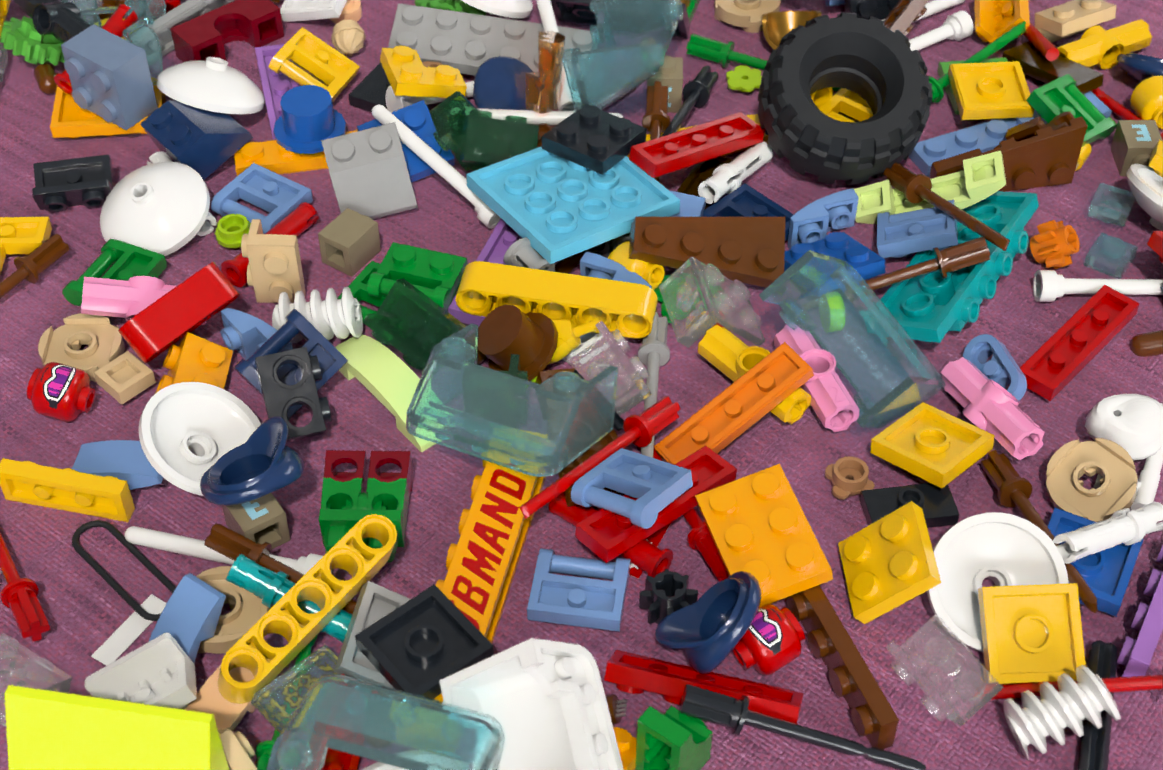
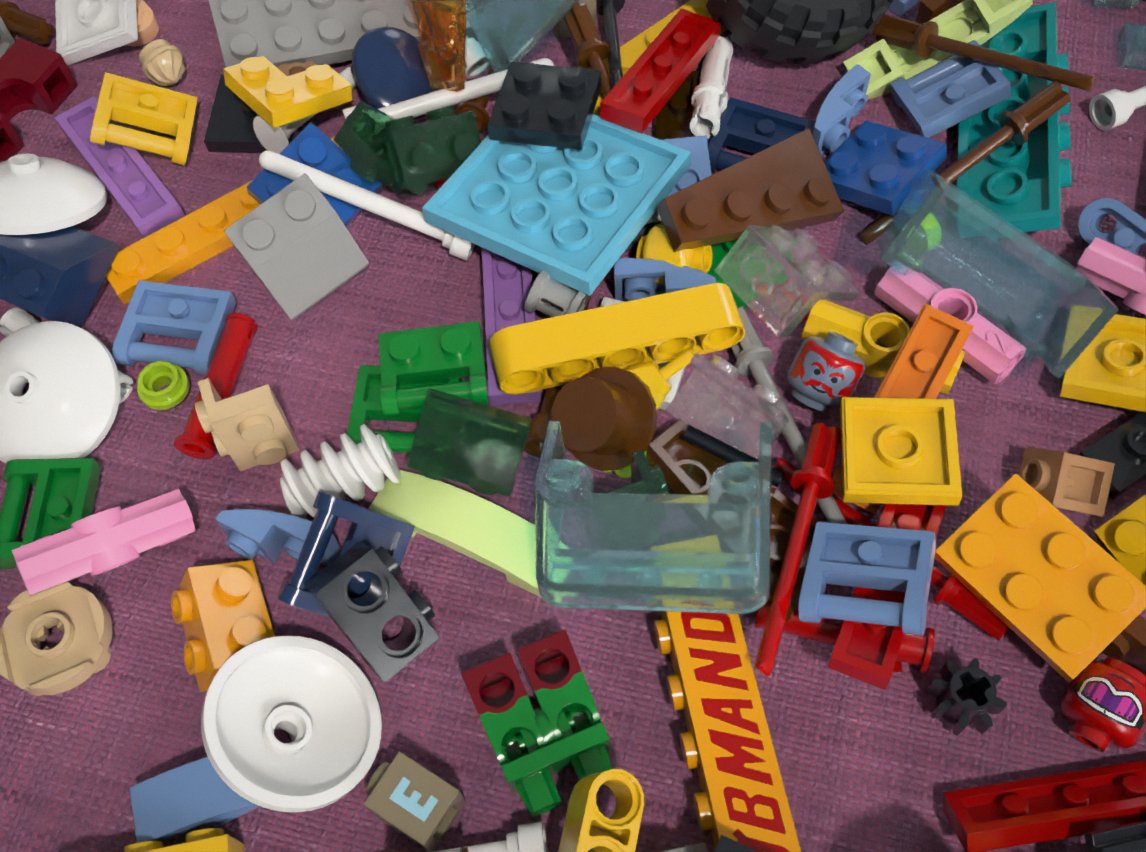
camera: 20 degrees left, 15 degrees up
(60, 391) = (59, 721): red head -> none
(124, 377) = (133, 659): tan plate -> none
(178, 312) = (163, 548): red beam -> none
(254, 467) = (395, 761): dark blue piece -> none
(307, 120) = (181, 200): blue piece -> none
(349, 242) = (316, 346): dark tan brick -> none
(578, 599) = (856, 744): medium blue plate -> none
(697, 372) = (825, 371): none -> sand blue head
(709, 428) = (899, 451): none -> yellow plate
(714, 622) = (1065, 723): dark blue piece -> none
(834, 501) = (1068, 479): none -> medium nougat bracket
(848, 477) = (1059, 426): medium nougat plate -> none
(1054, 244) = (1094, 54): orange gear -> none

